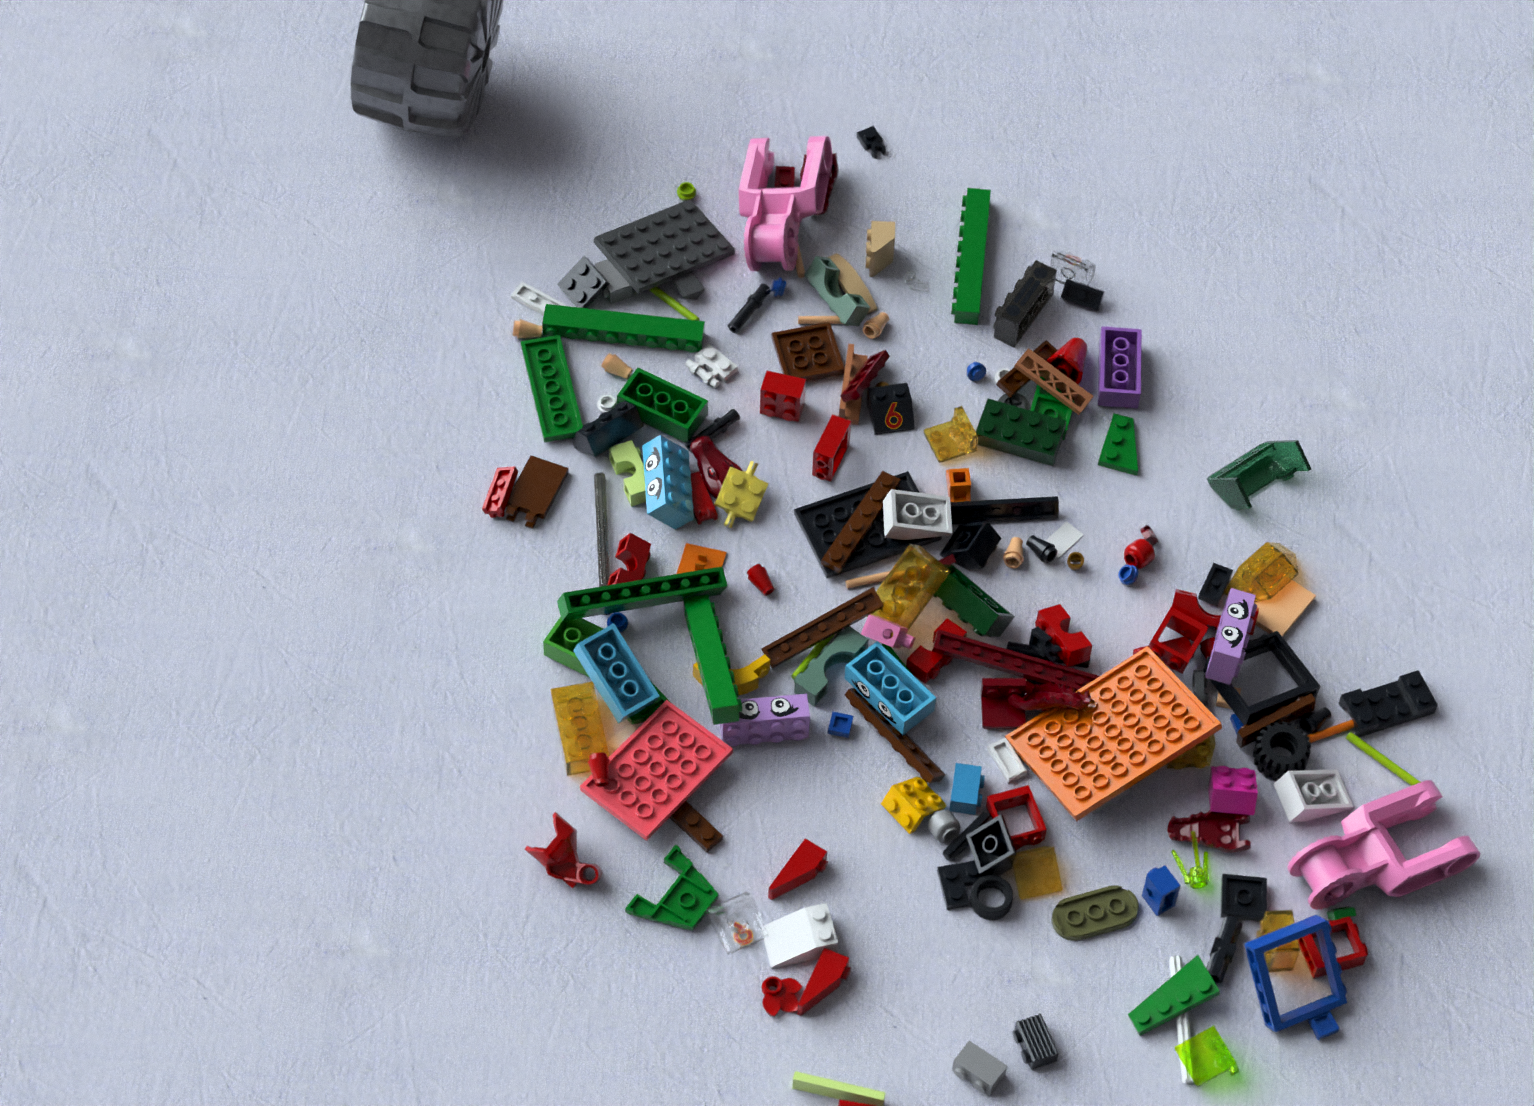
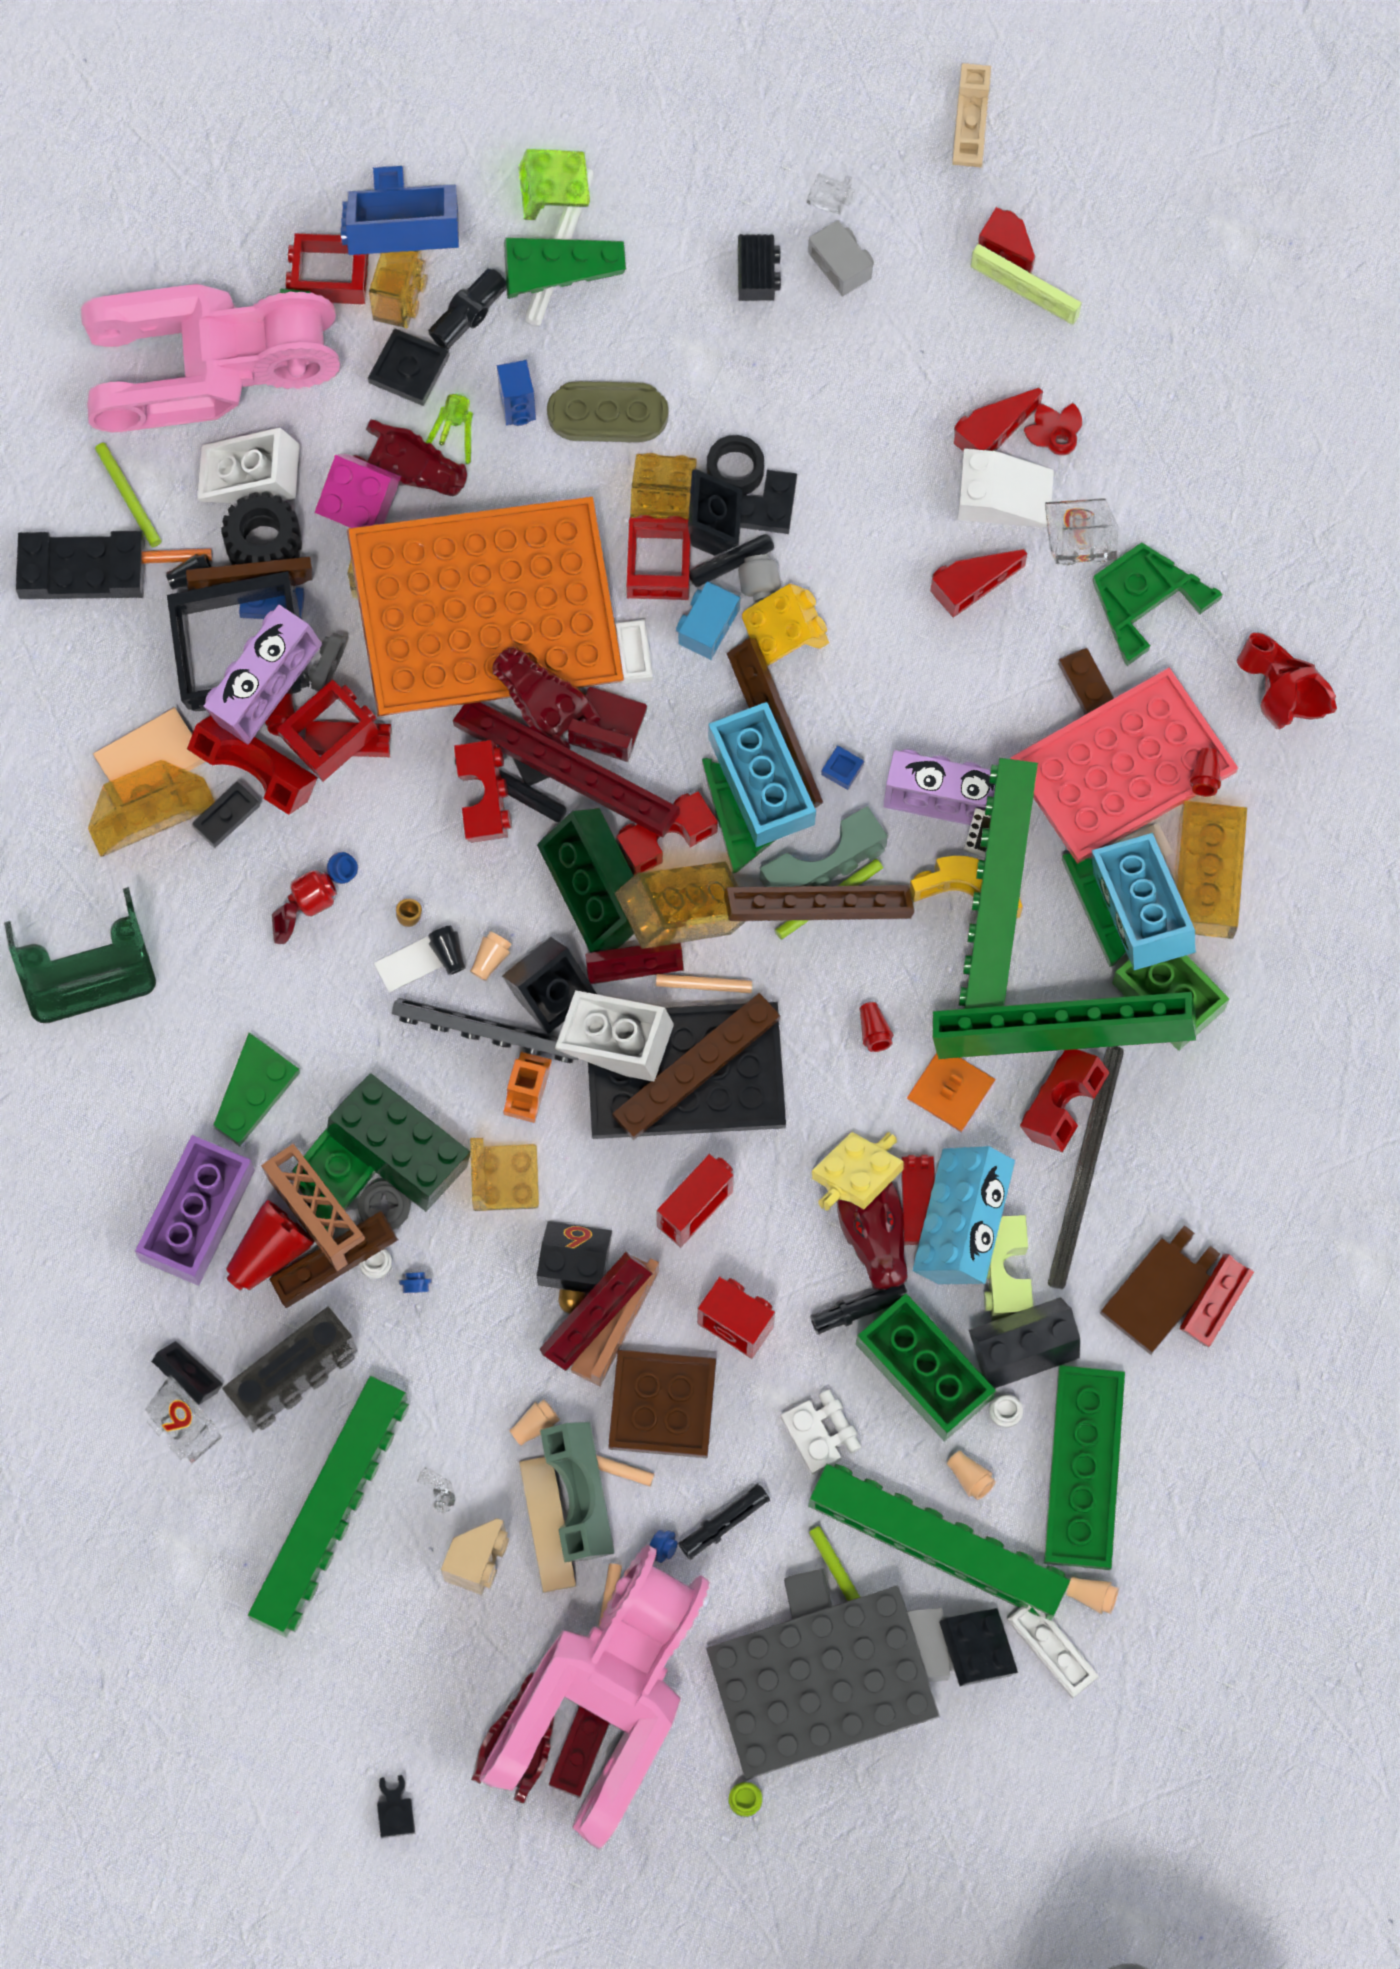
camera: 160 degrees left, 15 degrees up
(881, 630) = (737, 849): bright pink torso -> none
(1042, 644) = (517, 786): black plate -> none

